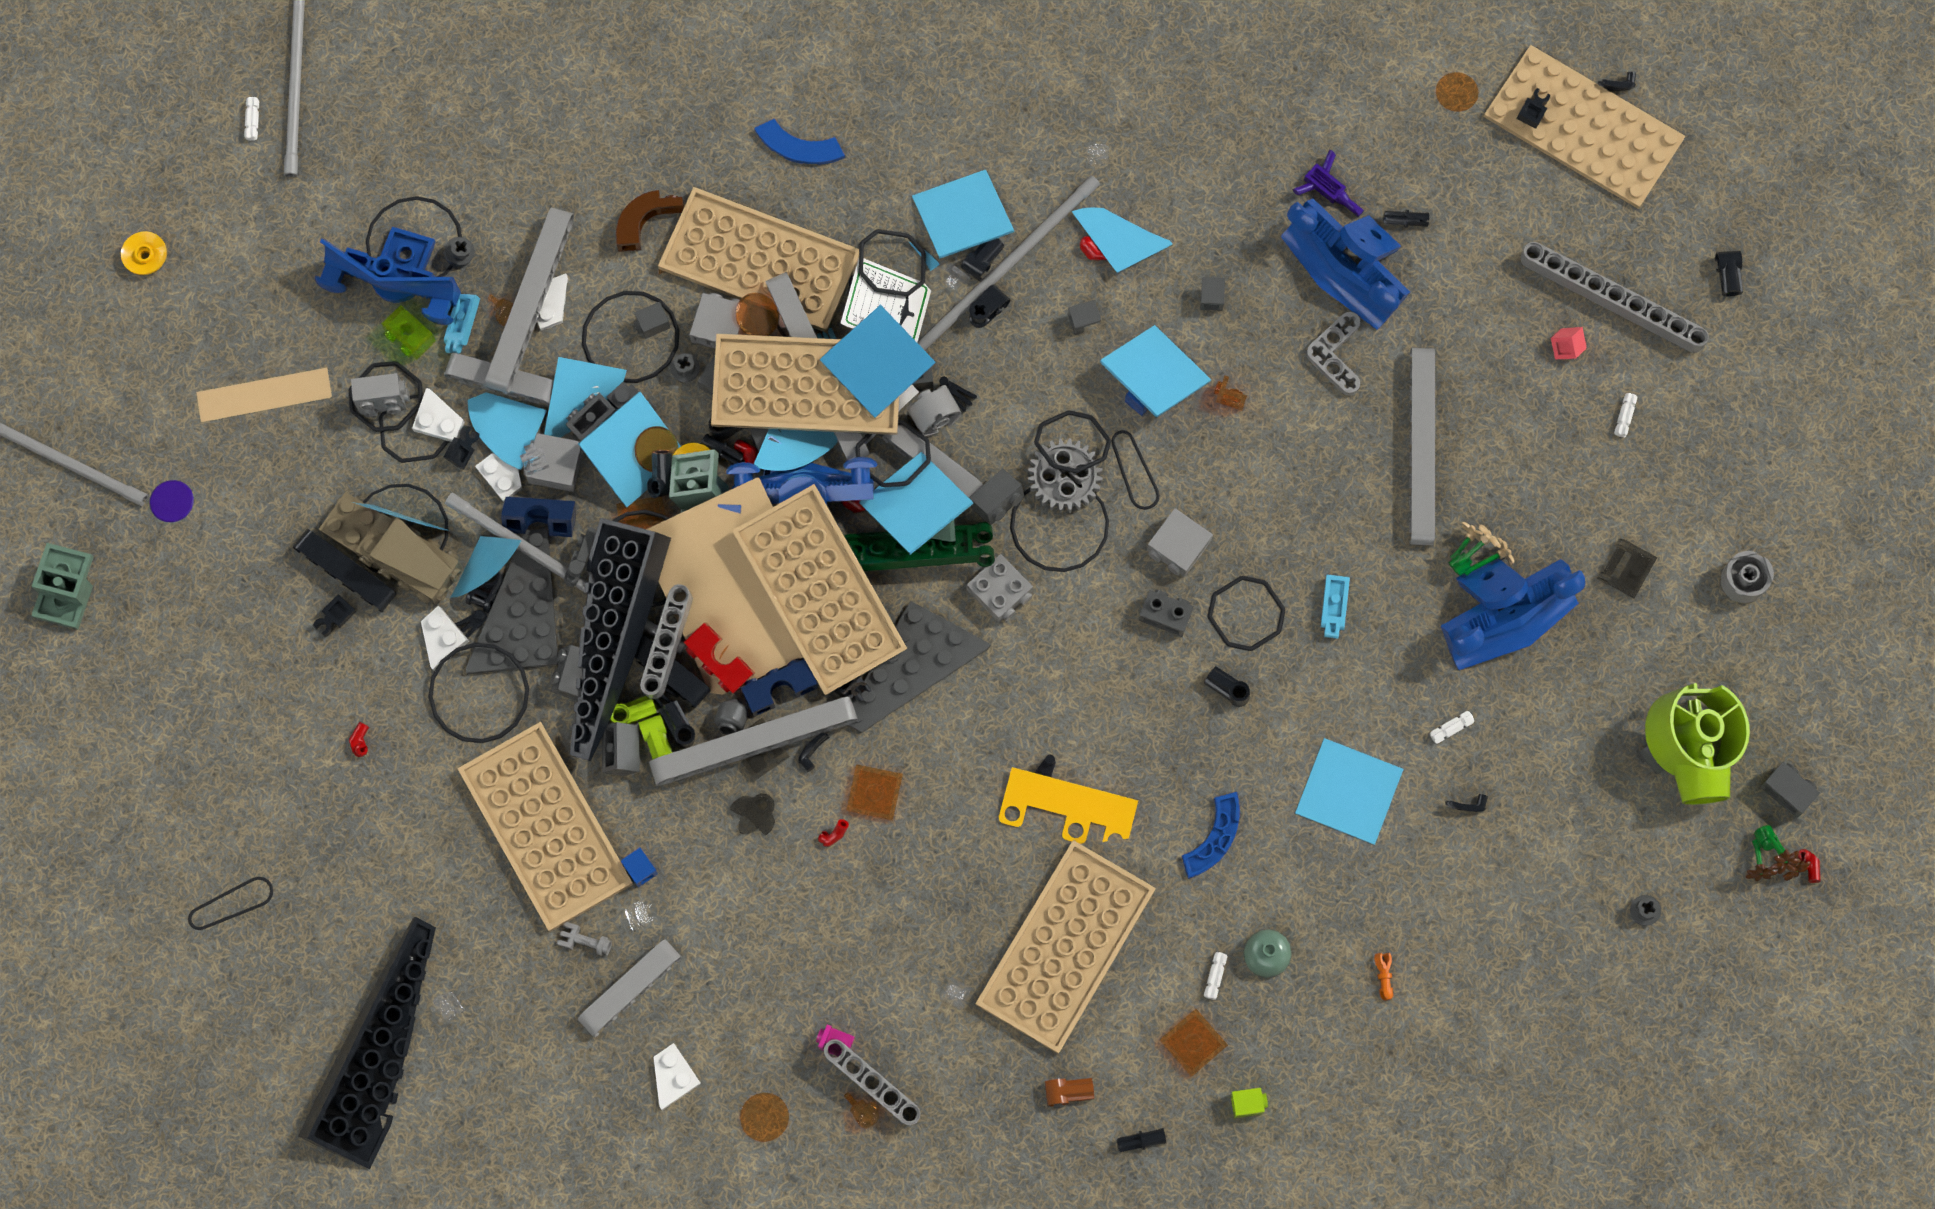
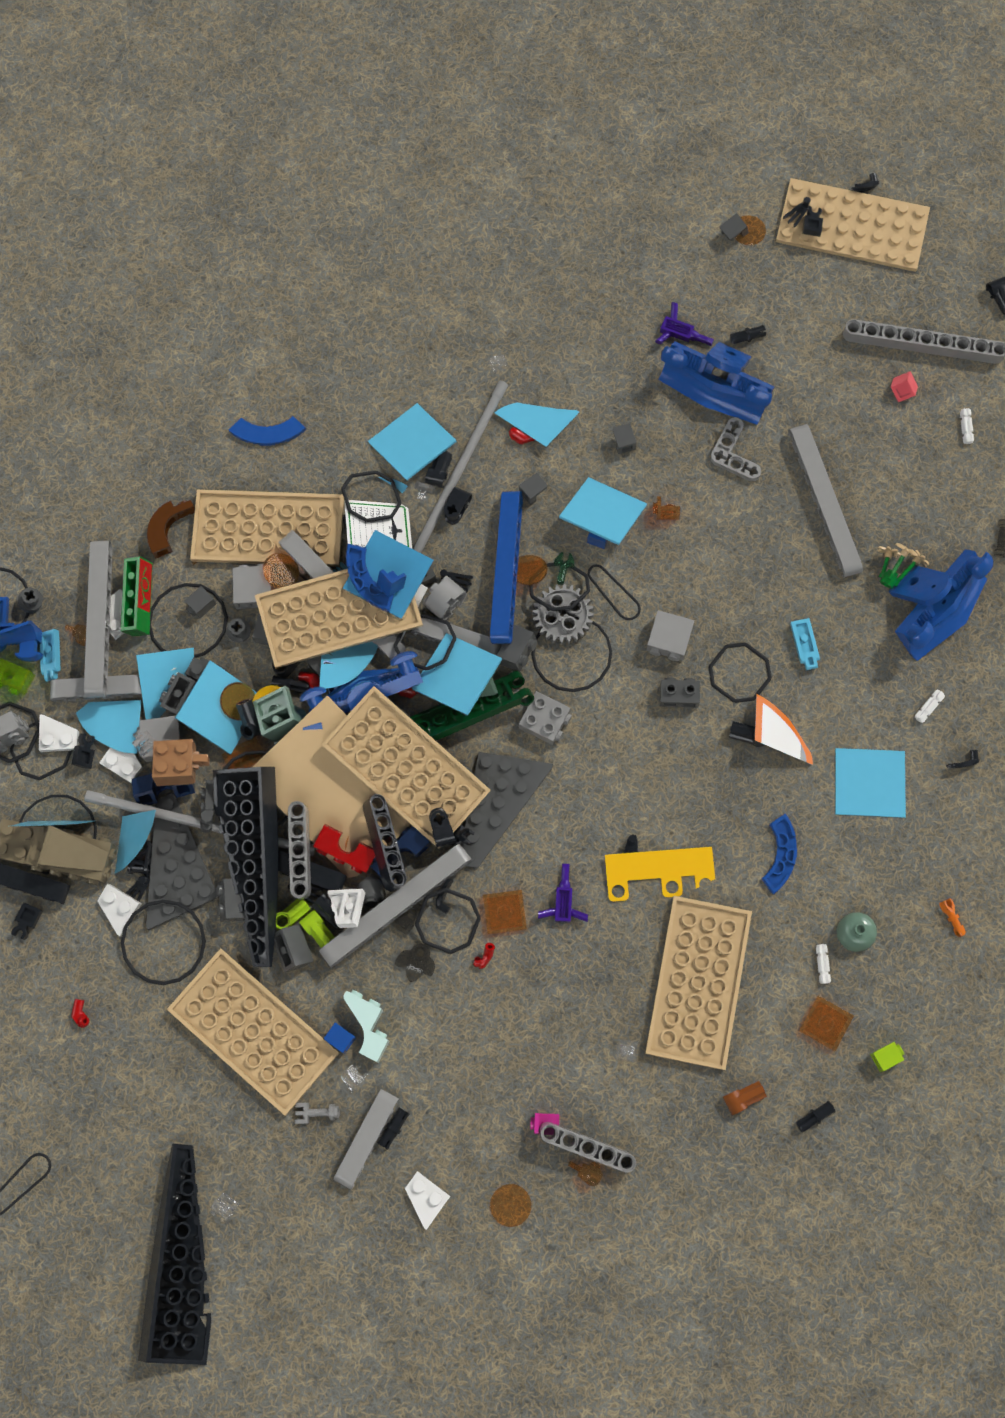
camera: 15 degrees left, 0 degrees up
(562, 494) = (176, 762): none -> medium nougat hinge
(581, 289) = (136, 596): none -> green brick
(664, 987) = (393, 1128): none -> black pin
(679, 854) = (368, 1015): none -> light aqua arch
(698, 723) = (347, 906): none -> white wing
(760, 676) = (382, 851): none -> black beam
(779, 759) = (473, 930): none -> black piece
(835, 675) = (442, 830): none -> black piece
(845, 358) = (362, 580): none -> blue tile
(876, 371) = (390, 582): none -> blue panel
(945, 804) = (563, 901): none -> dark purple piece
(1018, 399) = (506, 568): none -> blue beam
(1044, 410) = (531, 569): none -> clear orange piece
(1083, 412) = (563, 566): none -> clear green bar
(1263, 695) = (778, 732): none -> white sticker
(1437, 83) = (734, 227): none -> dark grey panel
(1525, 87) = (801, 209): none -> black piece

